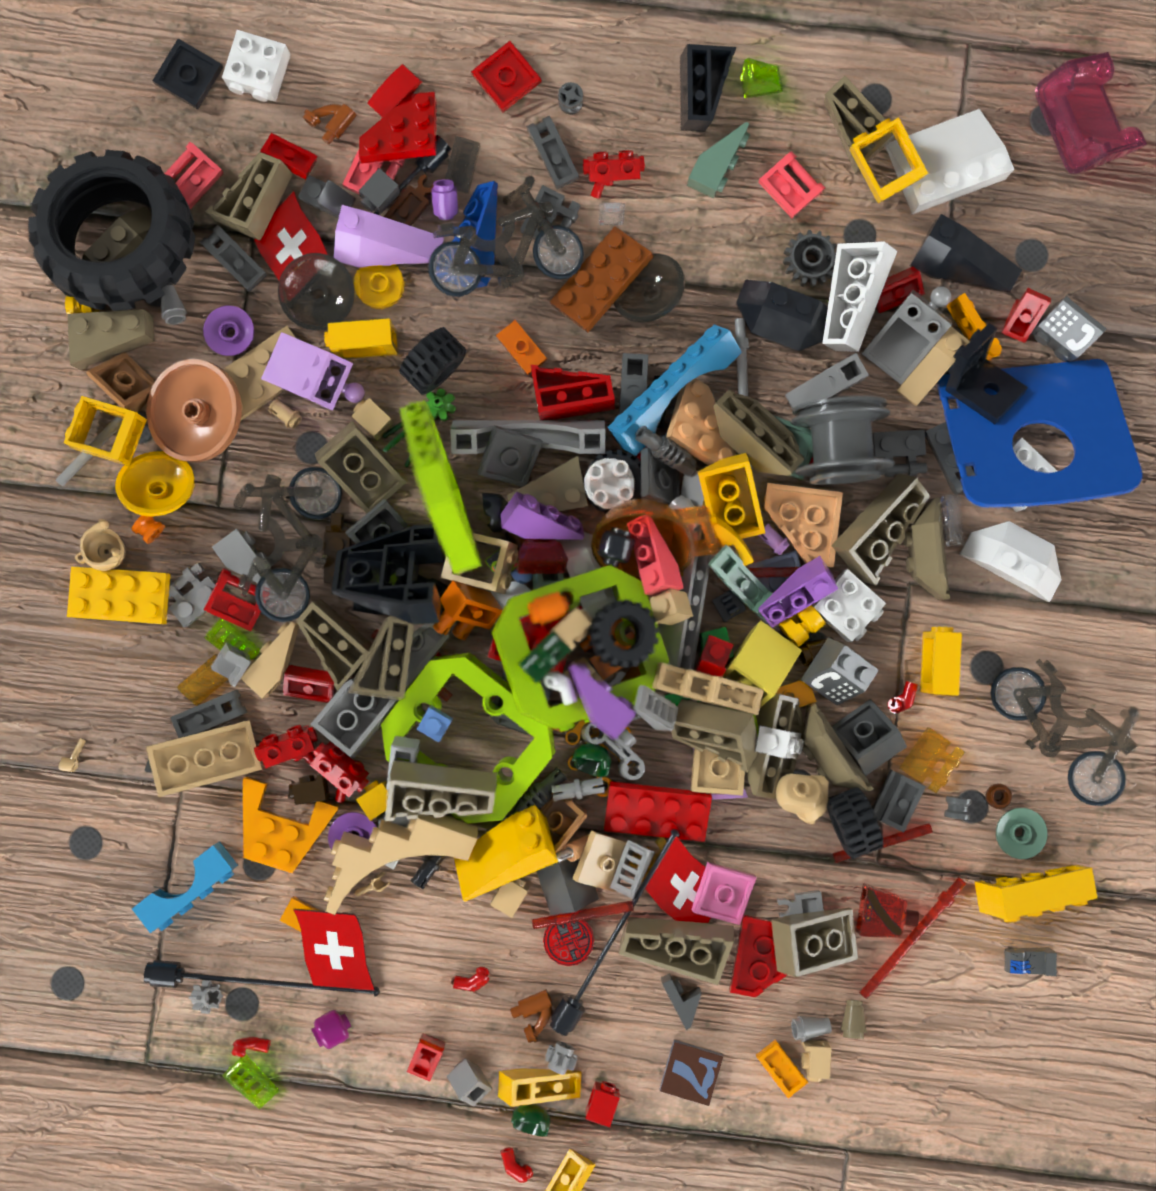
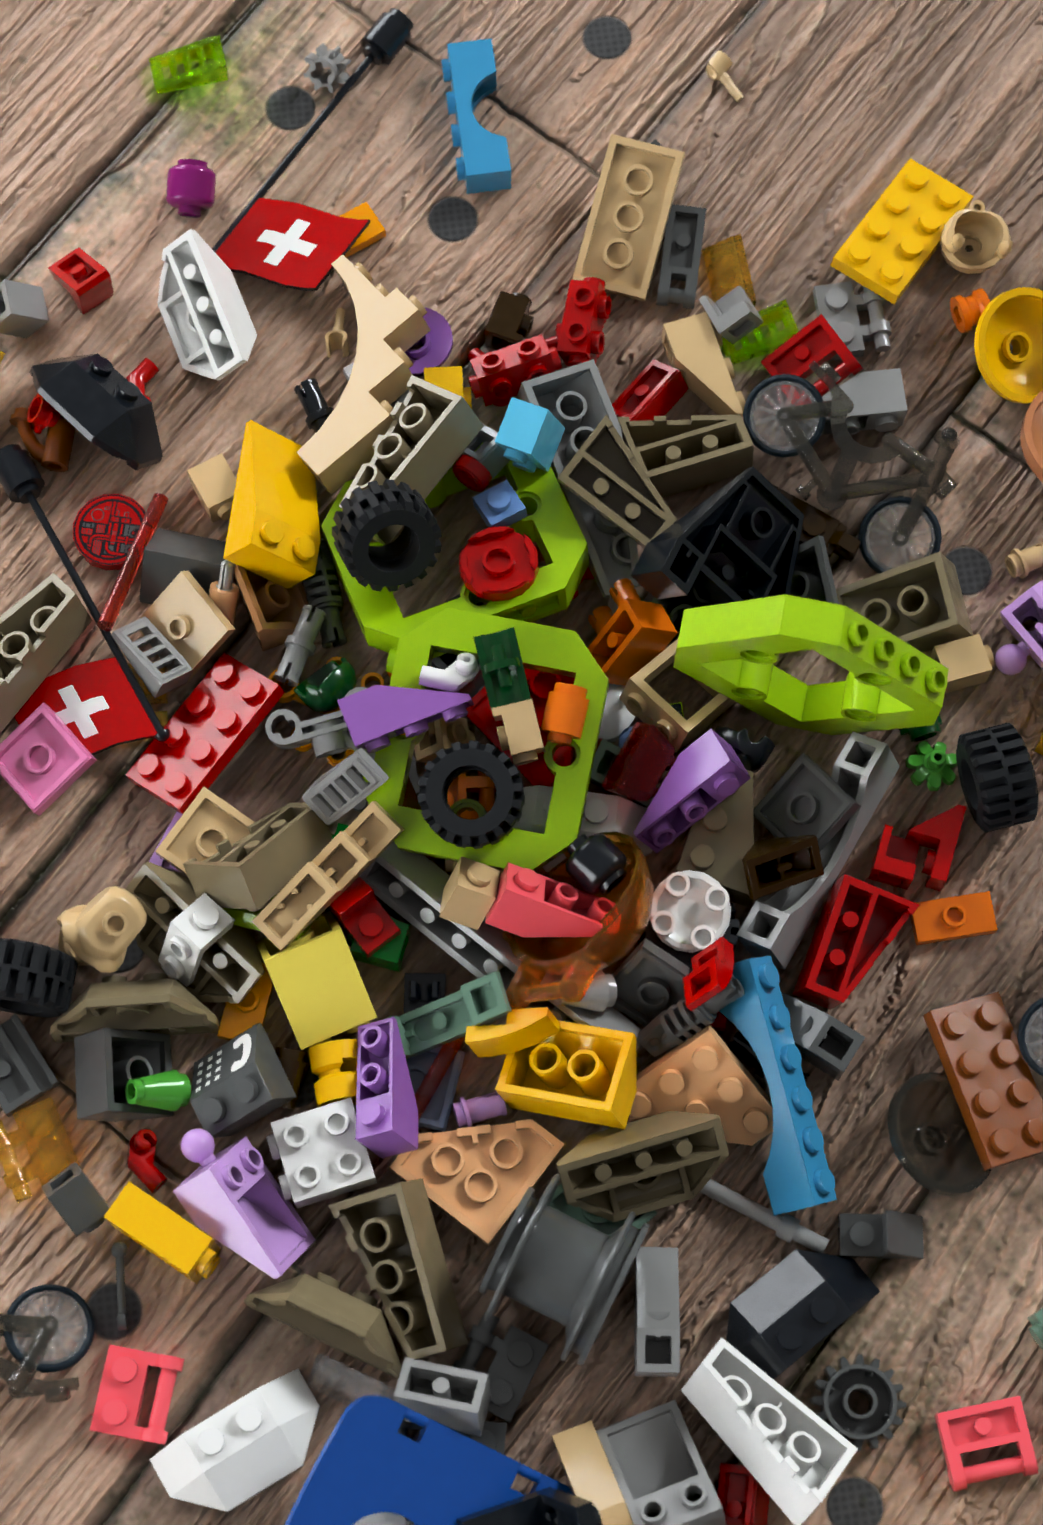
camera: 120 degrees right, 15 degrees down
(250, 1043) = (235, 90): red arm -> none
(275, 838) = (472, 253): light orange wing -> none
(386, 729) = (529, 435): none -> medium azure brick
(405, 970) = (203, 309): none -> white wedge
(424, 751) = (472, 473): none -> red tile
(471, 703) = (498, 563): none -> red tile
(478, 375) = (941, 835): none -> red slope
(497, 773) = (399, 560): none -> black tyre
(502, 994) = (101, 406): none -> black wedge
(506, 395) = (894, 860): none -> red panel
(523, 1023) = (42, 414): none -> red plate
(552, 451) = (781, 864): none -> dark brown slope
(644, 447) = (710, 973): none -> red slope
(716, 294) = (881, 1235): none -> dark grey slope
(868, 711) = (161, 1090): none -> bright green cone
(903, 631) = (241, 1203): none -> lavender slope
(938, 467) = (445, 1394): none -> light grey brick
(948, 720) = (76, 1199): none -> dark grey brick
(988, 660) = (119, 1250): none -> dark grey hinge
(1026, 635) = (123, 1392): none -> coral plate

